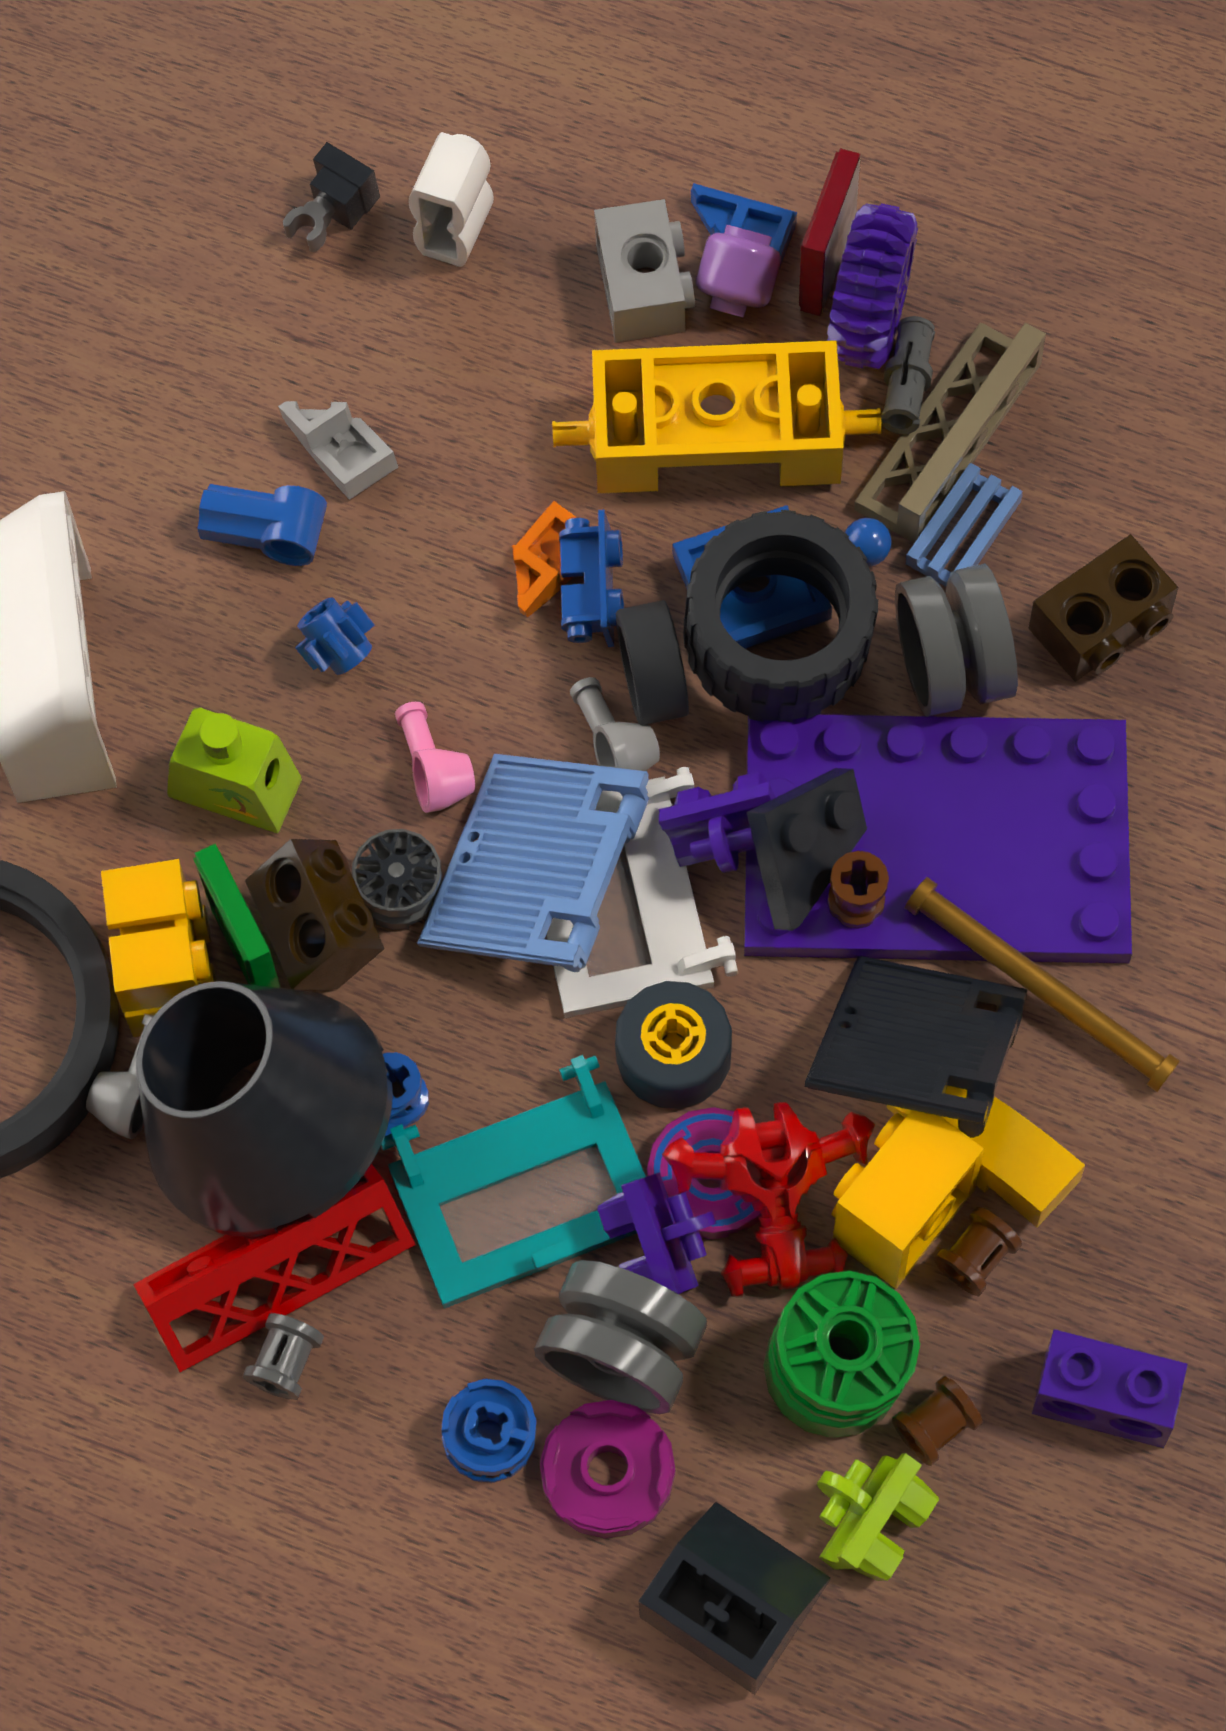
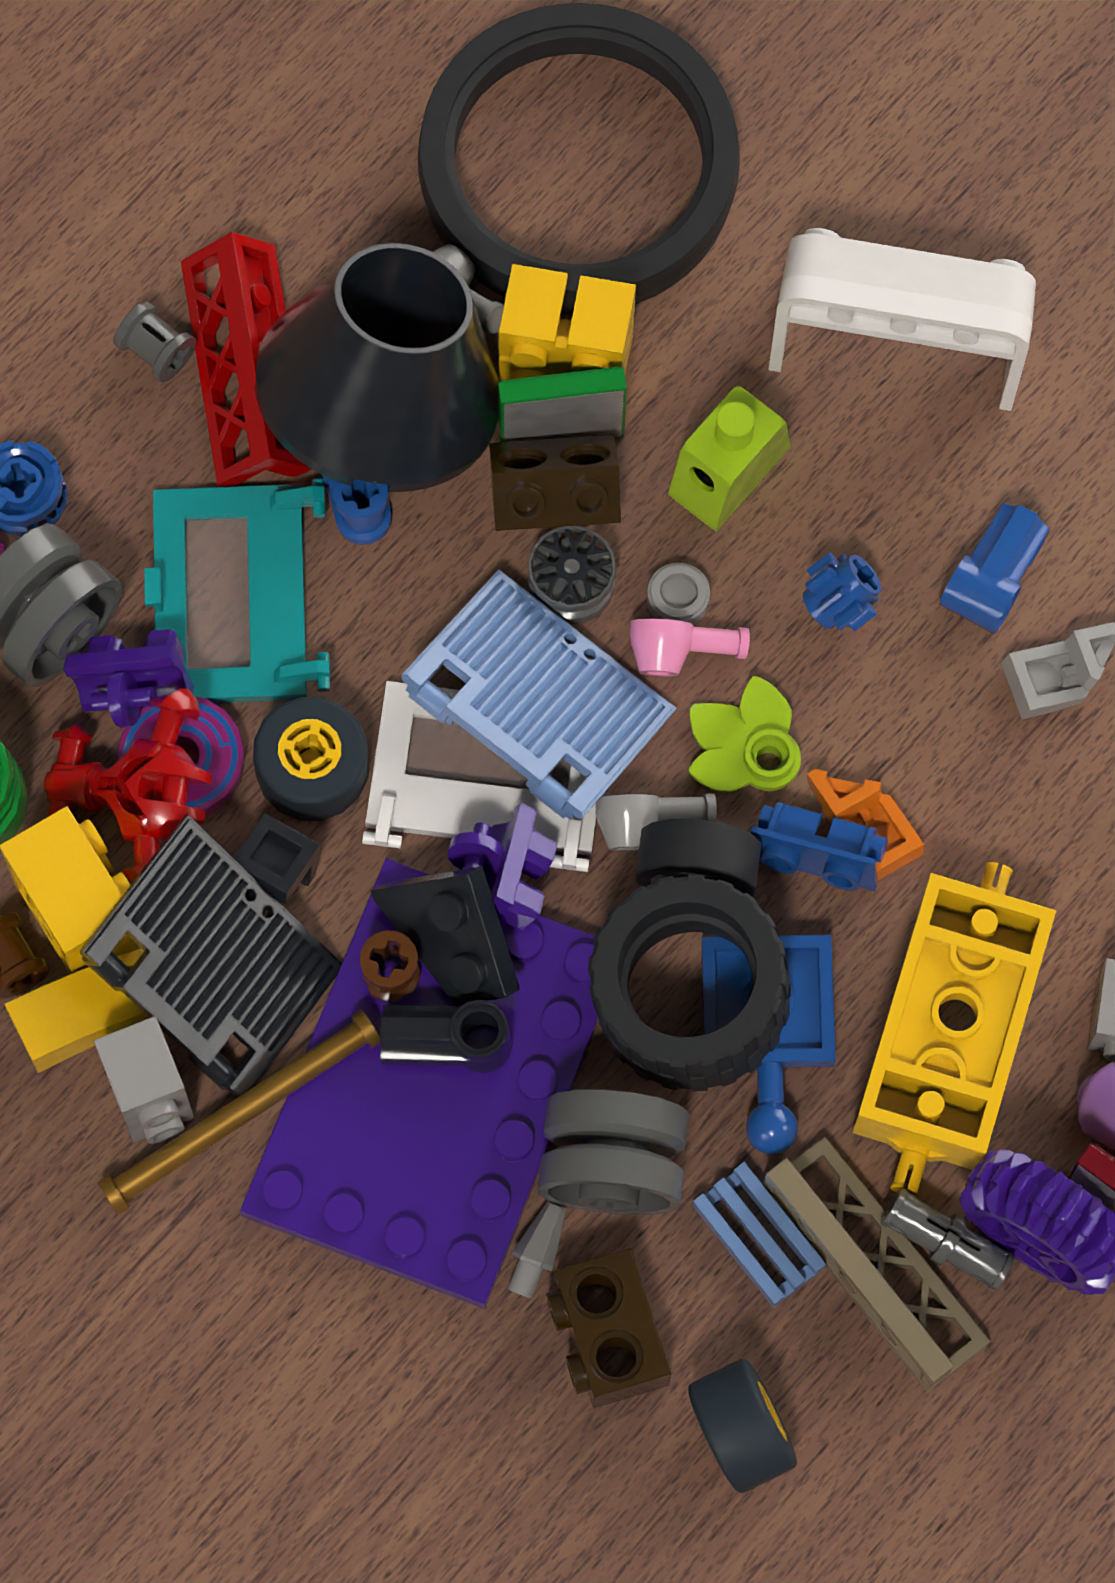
camera: 105 degrees right, 5 degrees up
(381, 786) = (678, 593): none -> light grey tile
(506, 690) = (738, 736): none -> lime plate
(793, 1028) = (279, 857): none -> black panel
(904, 823) = (437, 1036): none -> black piece
(1056, 696) = (537, 1249): none -> light grey bar
(1058, 1060) = (145, 1081): none -> light grey brick
(1146, 471) = (742, 1425): none -> black wheel

